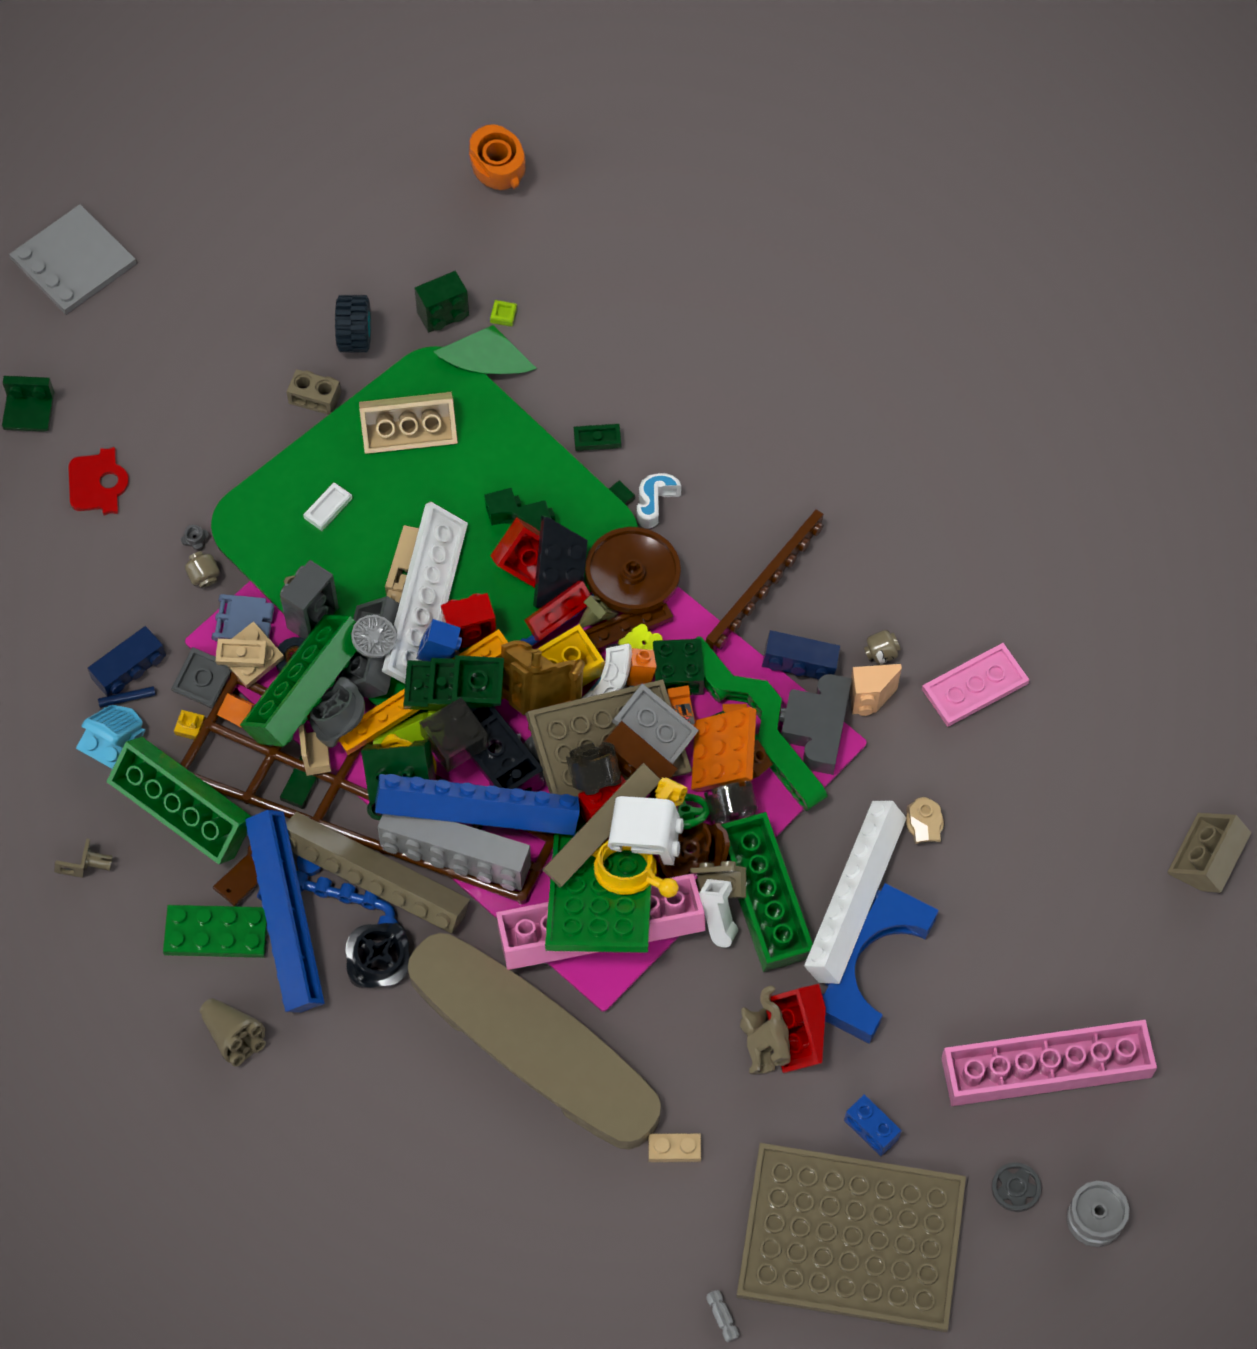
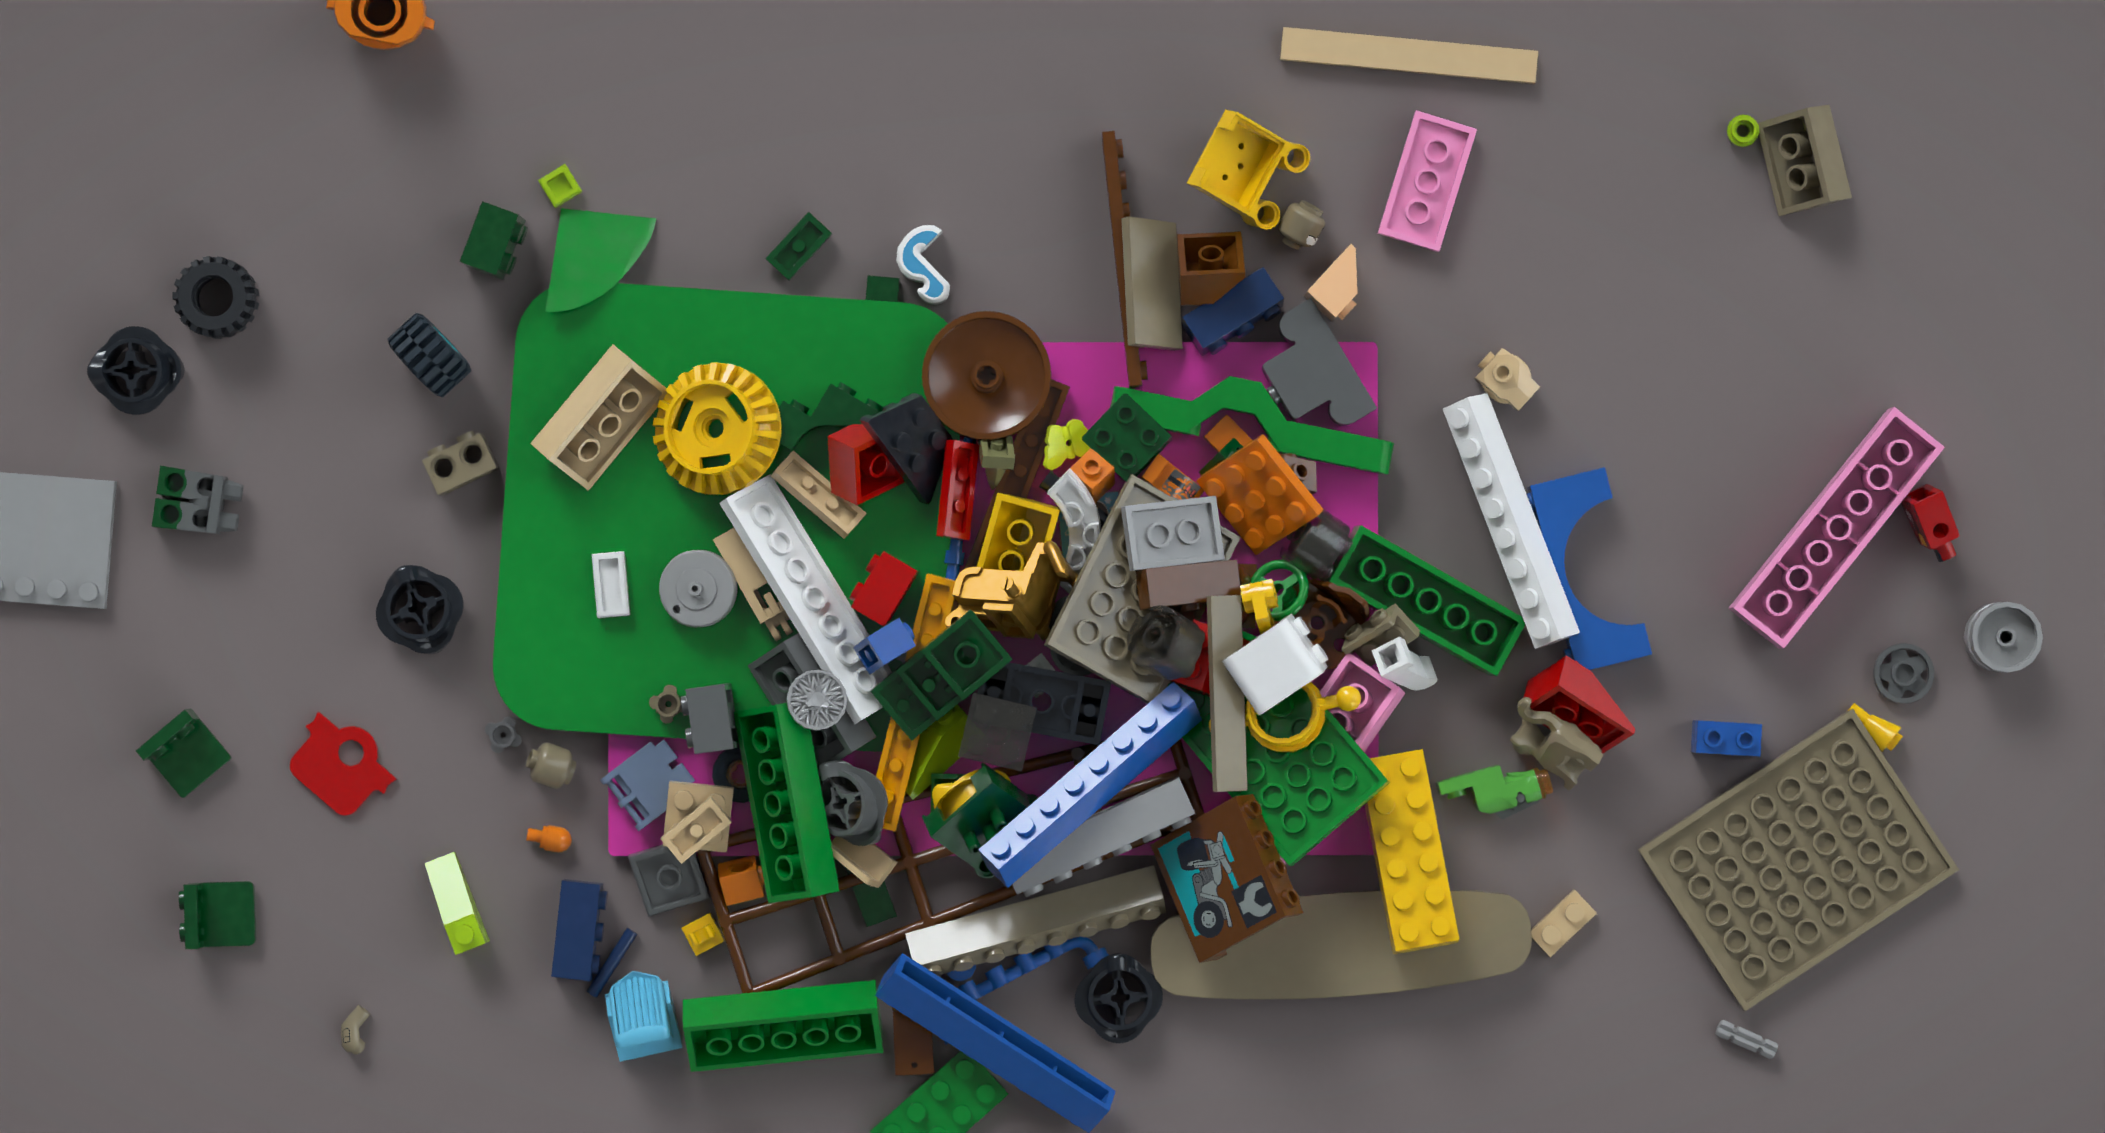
camera: 45 degrees left, 25 degrees up
(78, 597) = (456, 903): none -> slope
(163, 298) = (205, 503): none -> dark grey hips
(163, 606) = (550, 838): none -> orange cylinder
(201, 218) = (102, 370): none -> black piece
(215, 431) = (407, 578): none -> black piece
(276, 232) = (191, 285): none -> black tyre
(370, 543) = (698, 588): none -> light grey wheel
(467, 491) = (749, 443): none -> yellow gear
(481, 547) = (815, 493): none -> tan plate
(504, 924) = (1226, 877): none -> panel
(620, 1016) = (1410, 856): none -> yellow brick
(705, 1035) = (1497, 793): none -> bright green plate
(769, 603) = (1151, 283): none -> dark tan tile
(806, 616) = (1209, 265): none -> reddish brown slope
(876, 583) = (1240, 164): none -> yellow piece
(972, 1209) = (1882, 731): none -> yellow cone
(1026, 617) = (1409, 55): none -> tan tile
(1115, 1099) = (1925, 510): none -> red torso
(1189, 803) = (1747, 121): none -> lime plate

